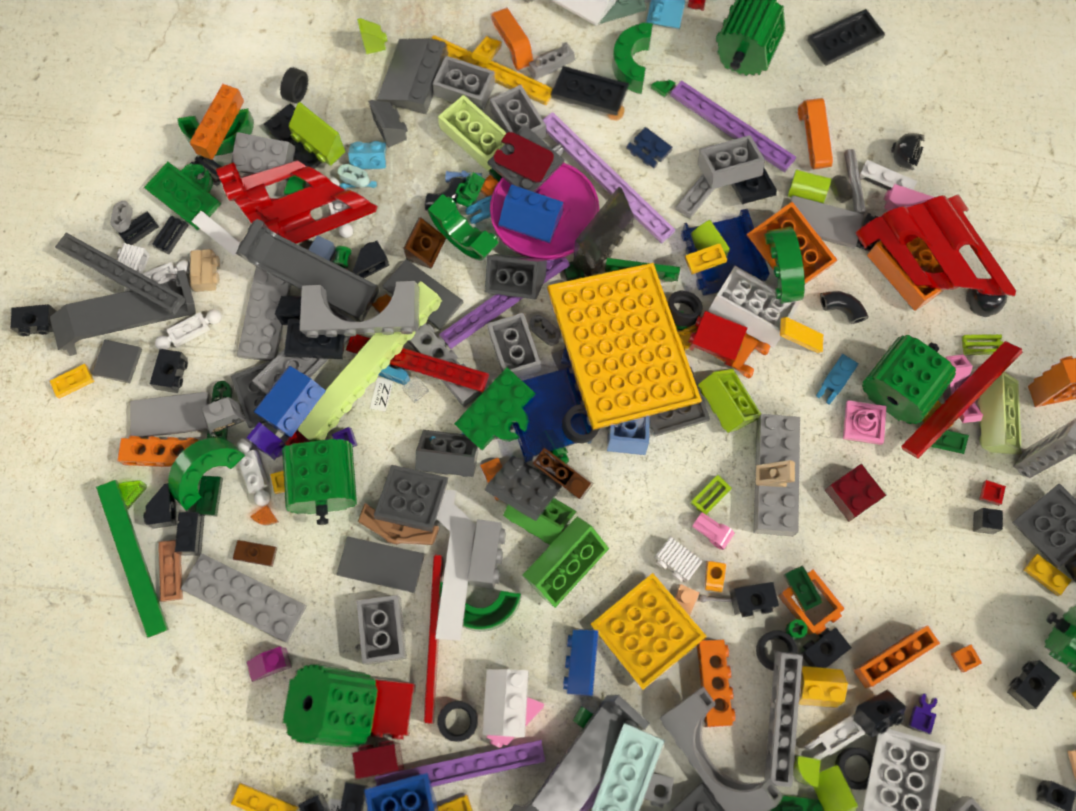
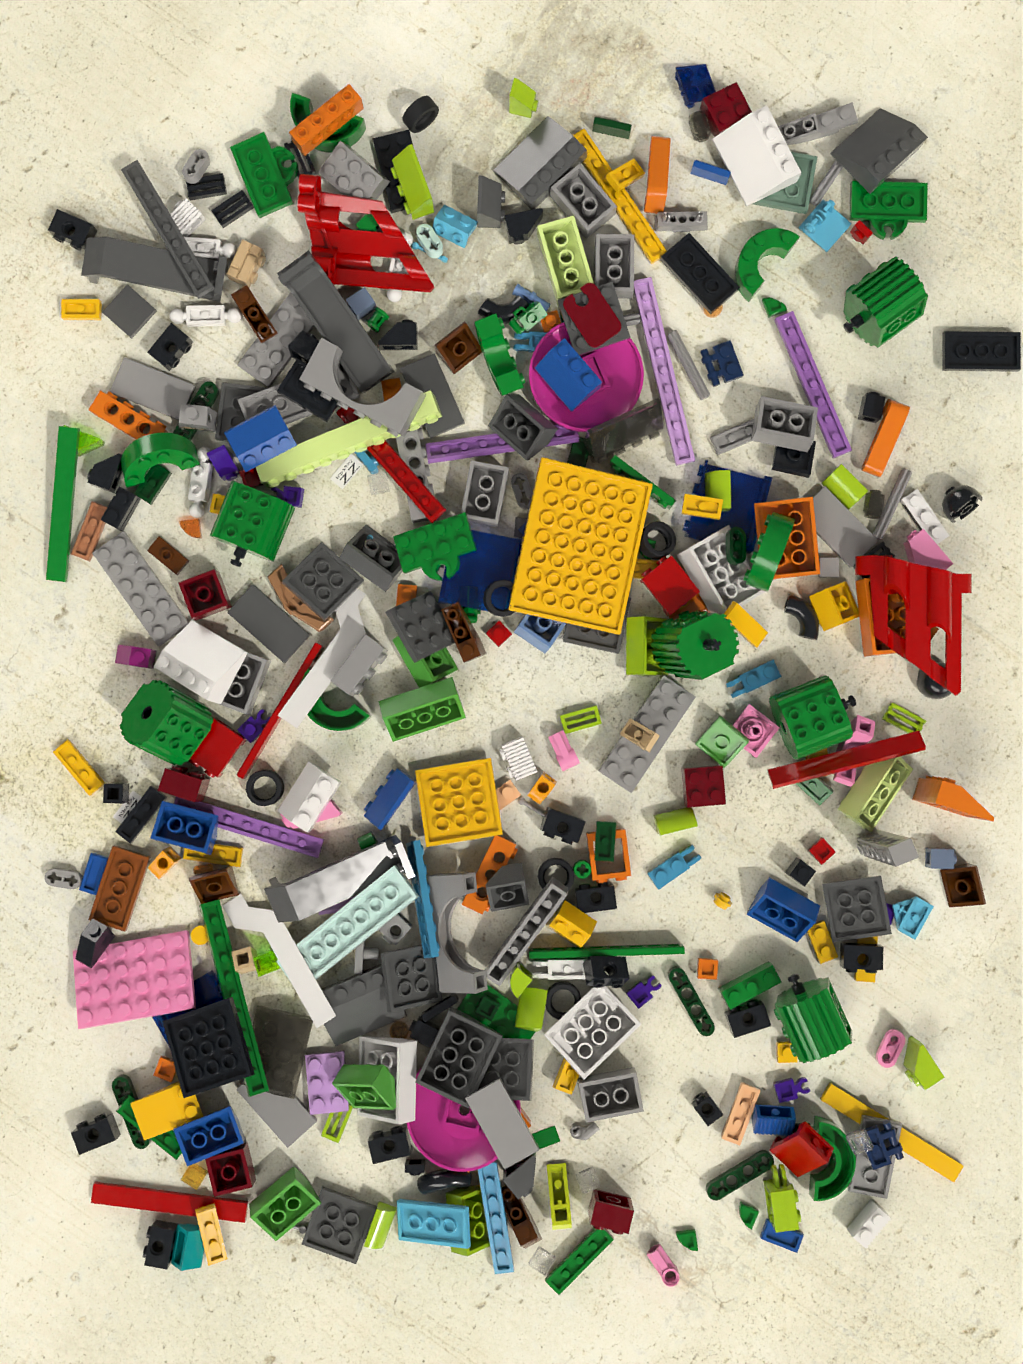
camera: 25 degrees right, 15 degrees up
(216, 232) = (276, 232): white sticker -> none
(230, 304) = (254, 314): none -> reddish brown slope
(307, 568) = (205, 594): none -> dark red brick
(336, 630) = (201, 661): none -> white slope
(416, 670) = (253, 727): none -> dark purple plate
(423, 126) = (522, 225): none -> black slope
(455, 23) = (611, 127): none -> dark green tile
(553, 16) = (710, 172): none -> blue tile
(594, 460) = (498, 633): none -> red plate
(623, 162) = (688, 365): none -> light grey axle
(672, 748) = (423, 905): none -> dark azure plate
(742, 684) = (507, 888): none -> dark grey slope
(752, 276) = (735, 547): none -> dark green plate
(773, 370) = (695, 644): none -> green piece
(790, 118) = (871, 407): none -> black brick
(841, 256) = (829, 567): none -> light grey tile
(845, 445) = (722, 741): none -> bright green tile
(850, 537) = (675, 820): none -> lime brick
(863, 283) = (834, 606): none -> yellow slope
(863, 696) = (620, 950): none -> green tile
(874, 582) = (672, 867): none -> dark azure hinge
(896, 656) = (649, 936): orange brick -> none
(938, 586) = (722, 900): none -> yellow plate
(971, 699) = (692, 1000): none -> dark green beam
(997, 564) = (784, 910): none -> blue slope
(1014, 651) = (749, 985): none -> green brick

